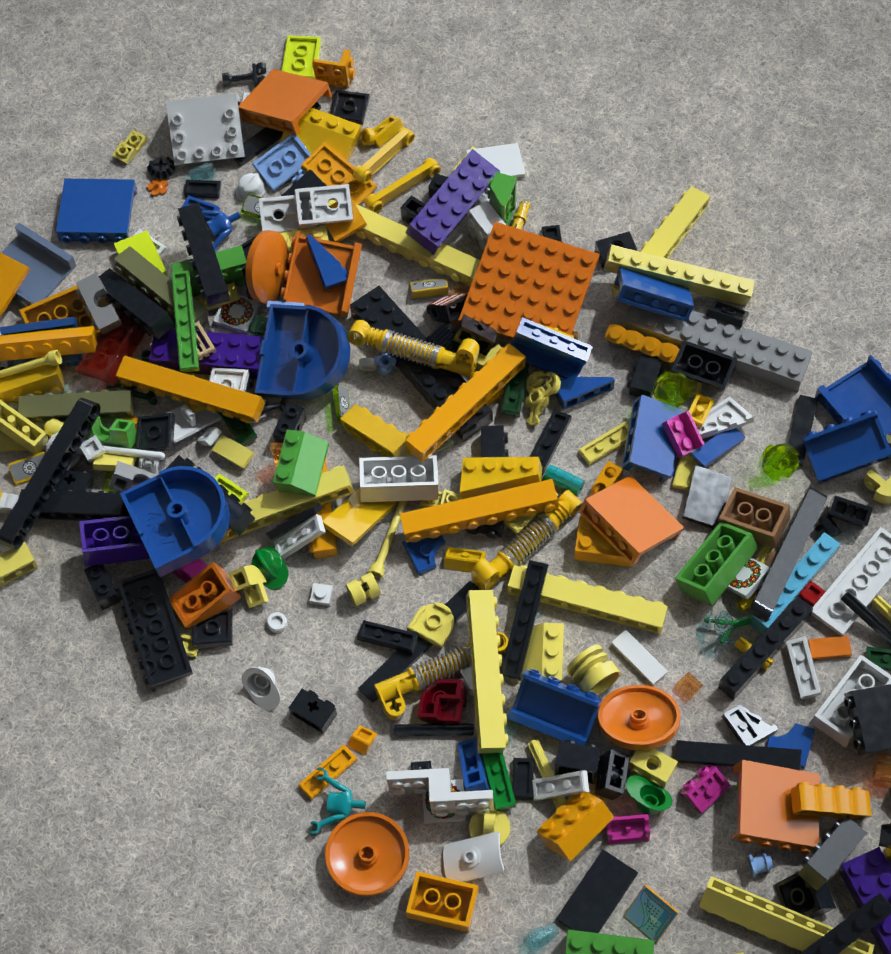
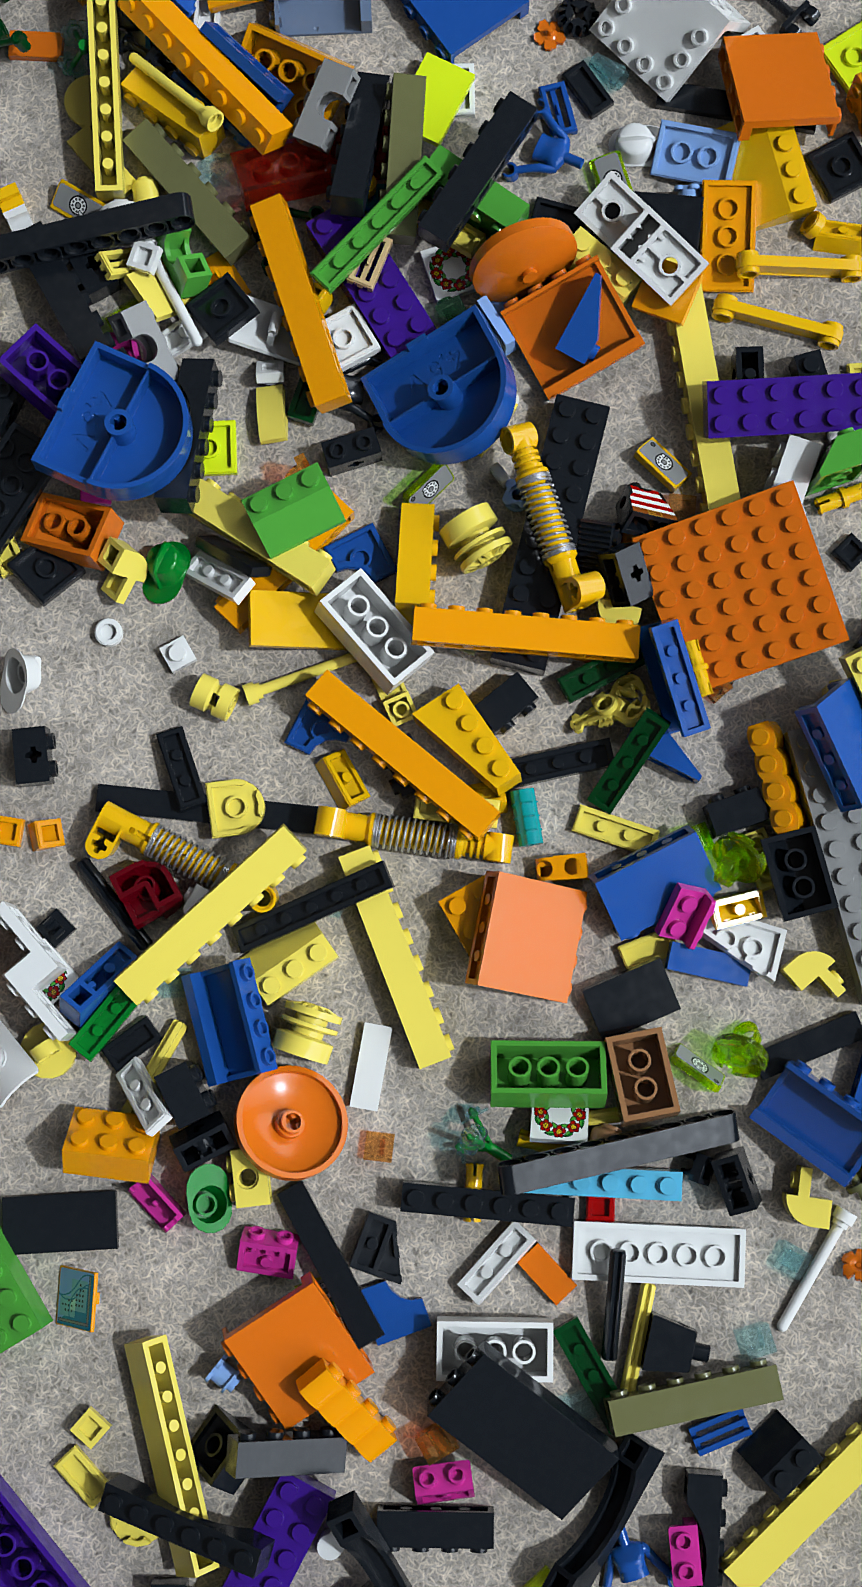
camera: 50 degrees right, 20 degrees up
(86, 466) = (117, 269): none -> light yellow tile
(350, 457) = (362, 550): none -> blue tile
(392, 396) = (473, 534): none -> light yellow wheel
(575, 405) = (628, 760): none -> dark green plate
(760, 397) = (813, 965): none -> light yellow brick
(776, 492) = (697, 1068): none -> slope

